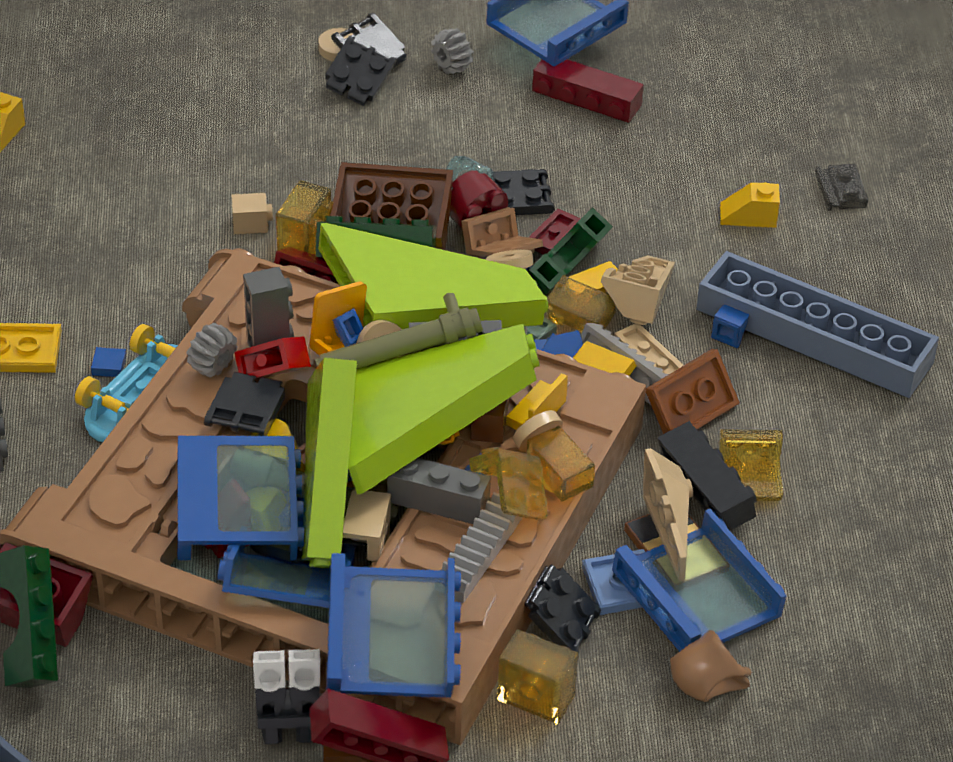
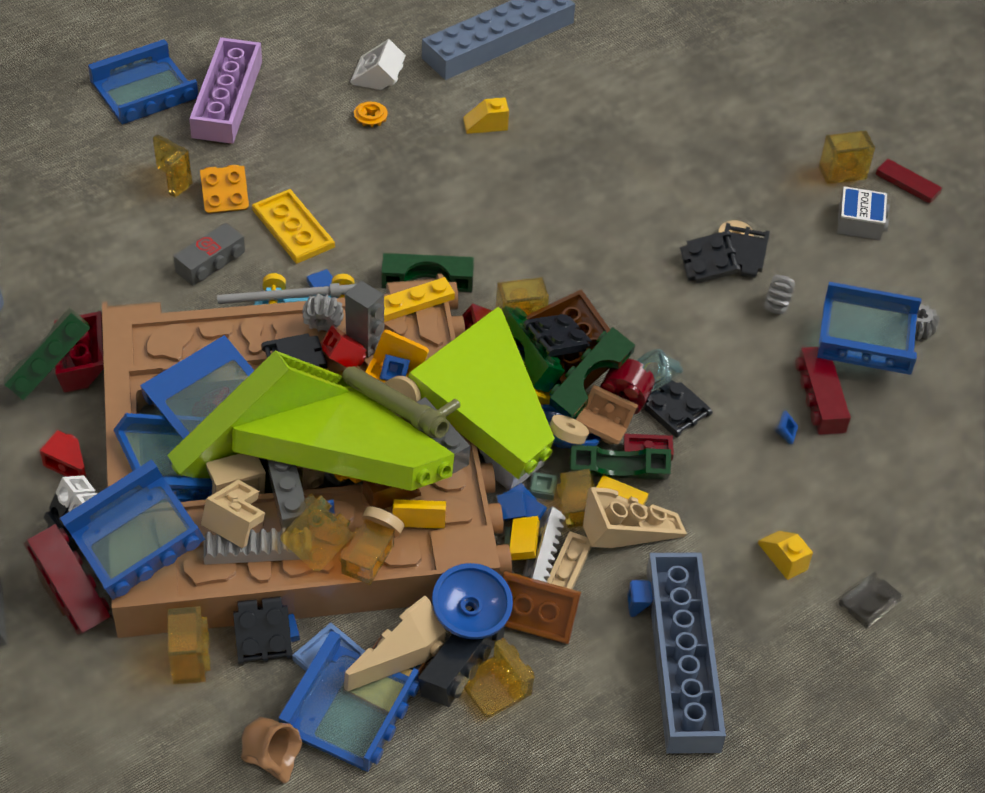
camera: 55 degrees right, 5 degrees up
(153, 346) = (334, 290): none -> light grey bar
(155, 291) = (413, 266): none -> dark green arch
(177, 678) = (63, 455): none -> red slope
(247, 260) = (417, 298): none -> yellow plate
(251, 213) = (514, 270): tan brick -> none
(392, 202) = (560, 333): none -> black plate
(436, 537) = (231, 512): none -> tan panel
(453, 175) = (610, 352): none -> dark green arch
(607, 136) = (786, 427): none -> blue slope
(671, 423) = (473, 587): none -> blue dish

